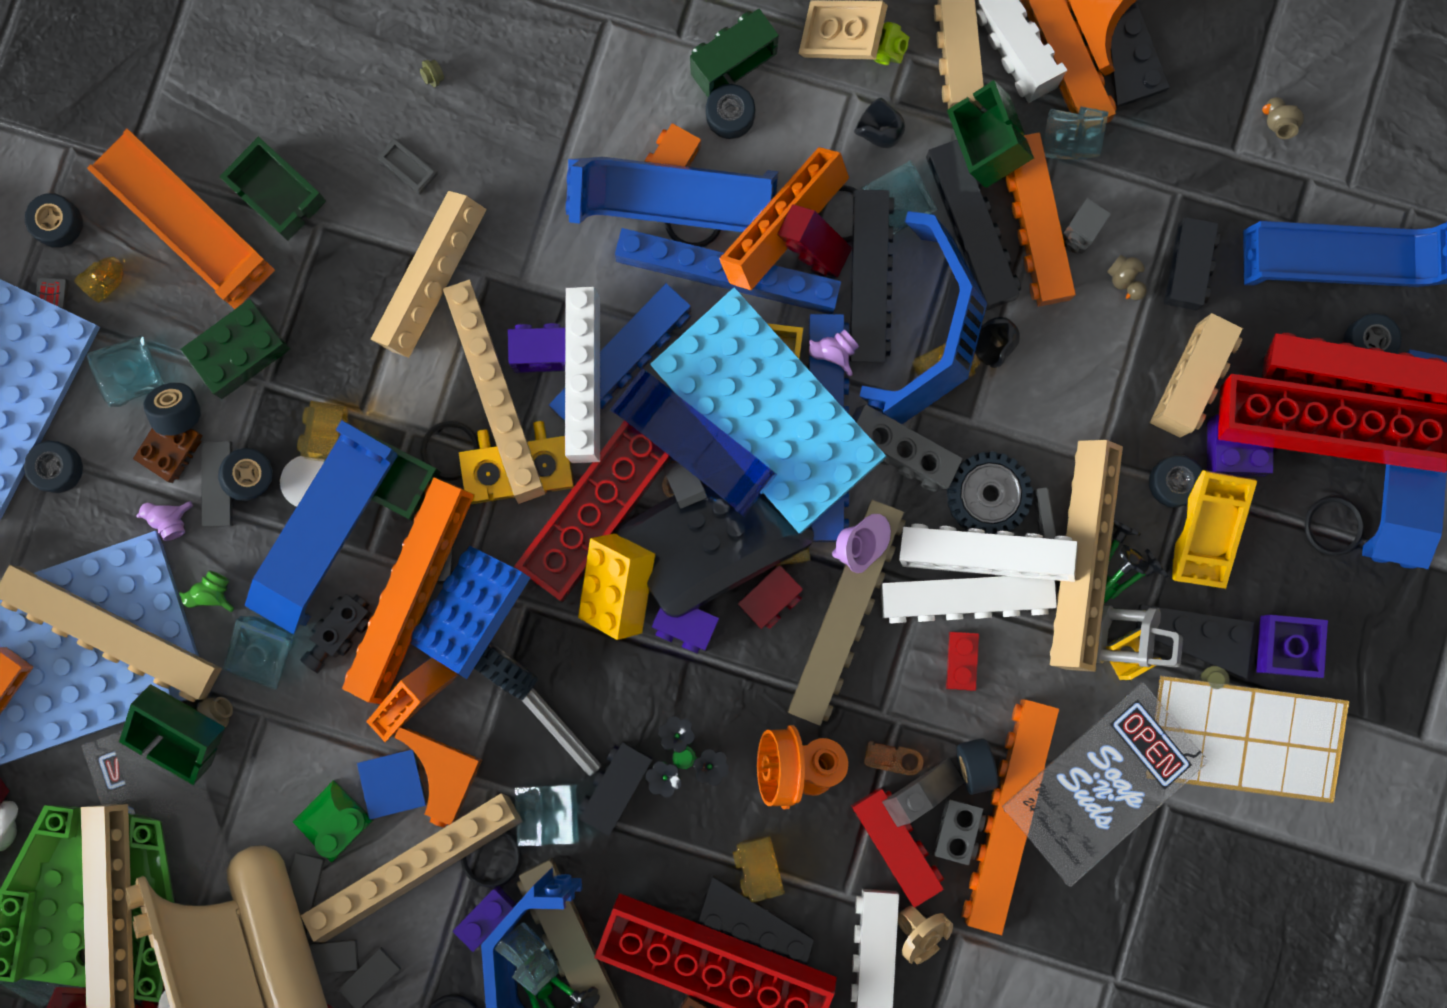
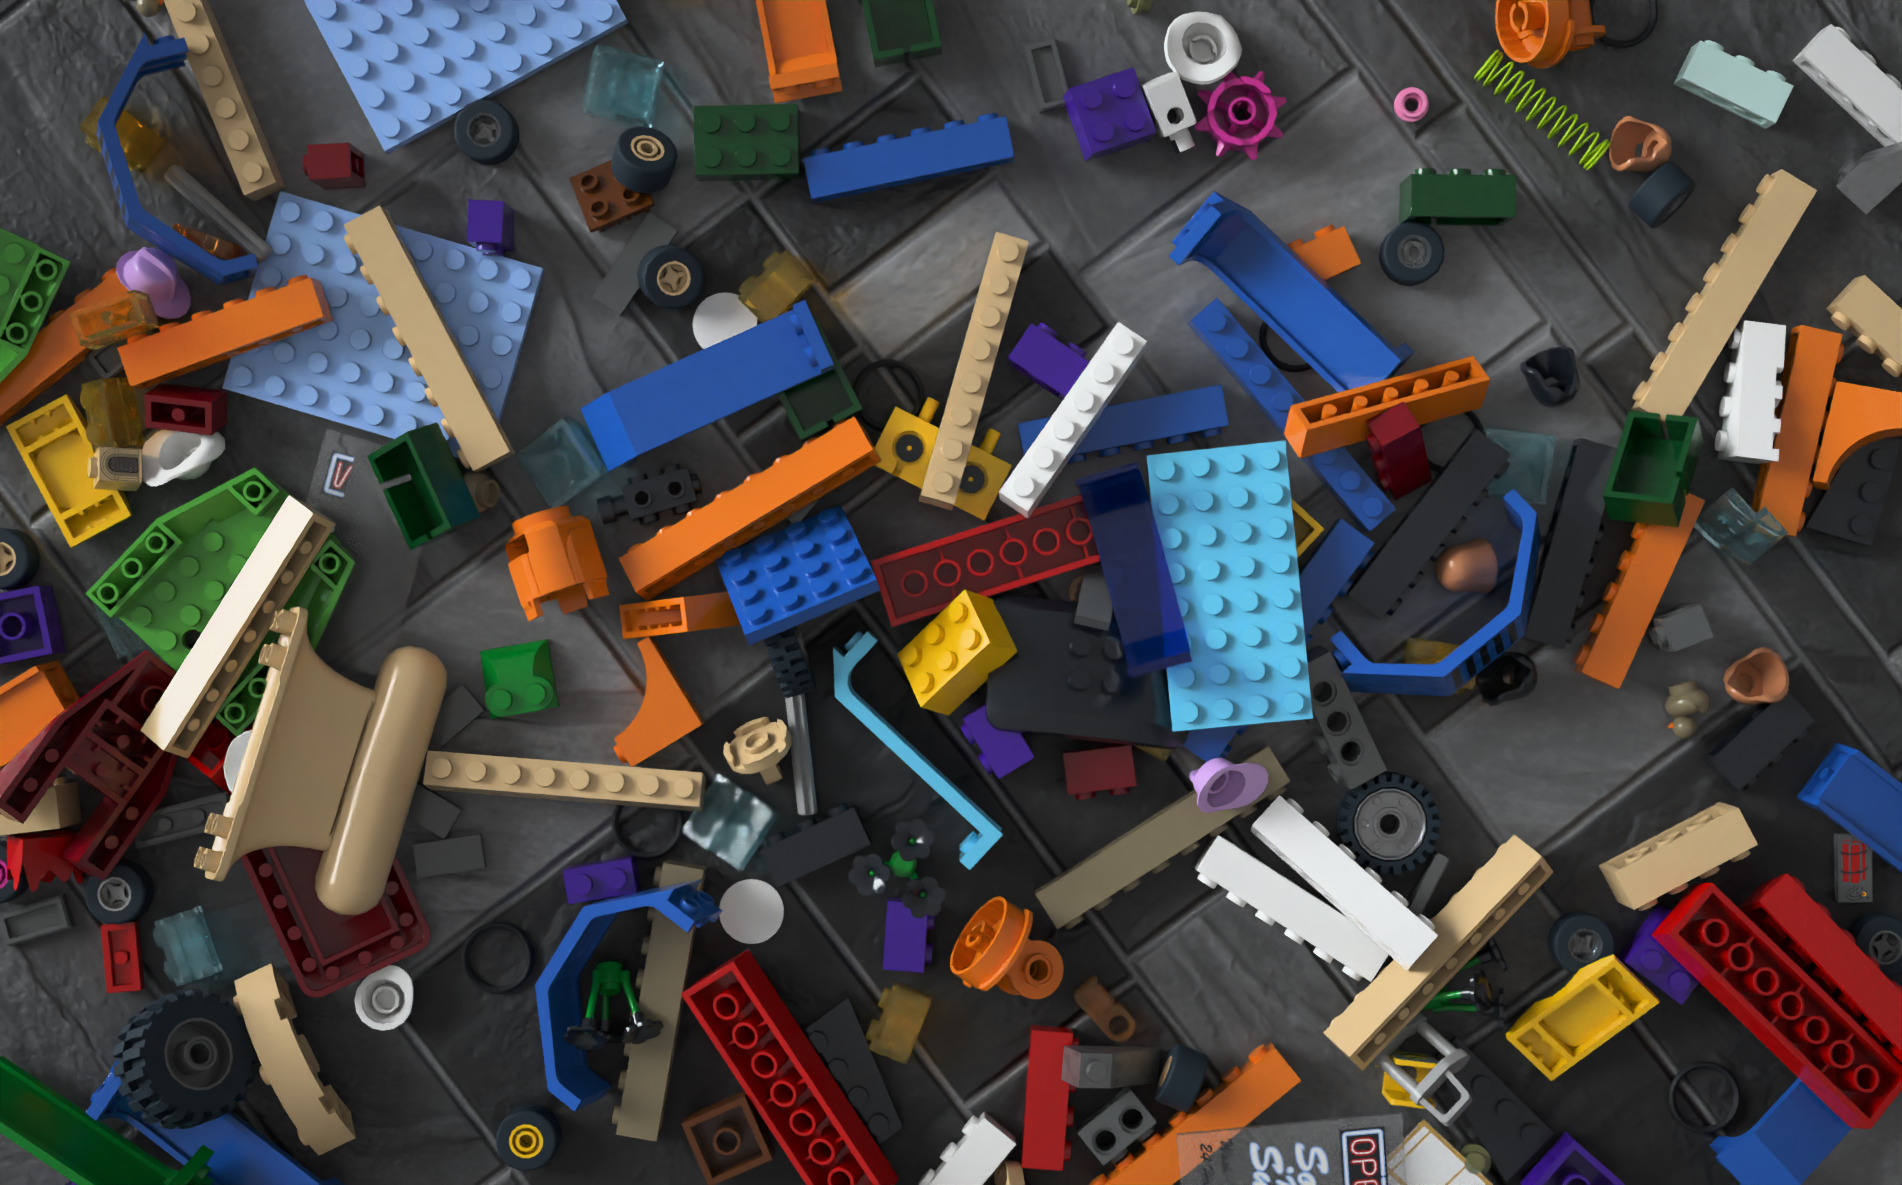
camera: 35 degrees right, 5 degrees up
(97, 526) = (490, 226): none -> dark purple brick
(165, 519) = (560, 263): lavender animal -> none
(208, 592) = (552, 367): bright green animal -> none
(299, 721) = (554, 560): none -> orange piece
(351, 284) = (909, 158): none -> blue brick
(391, 784) = (601, 684): blue tile -> none
(428, 274) = (992, 204): tan brick -> none
(464, 160) = (1109, 114): none -> dark purple brick
(494, 74) = (1202, 47): none -> white hat
(494, 120) = (1165, 94): none -> white torso
(530, 748) = (759, 748): none -> tan tile
(530, 956) = (621, 950): clear light blue slope -> none
(546, 84) = (1259, 110): none -> dark pink brick
(547, 650) = (974, 845): none -> medium azure panel
(605, 866) = (751, 911): none -> white sticker
(660, 9) = (1418, 97): none -> bright pink plate
(722, 806) = (906, 939): none -> dark purple brick
(835, 350) = (1339, 574): lavender animal -> none
(843, 29) = (1585, 253): tan plate -> none
(892, 44) = (1619, 297): lime brick -> none
(917, 287) = (1468, 567): none -> nougat hair
(962, 661) = (1241, 965): red plate -> none
(1160, 223) = (1757, 678): none -> nougat hair
(1316, 304) = (1852, 870): none -> tile

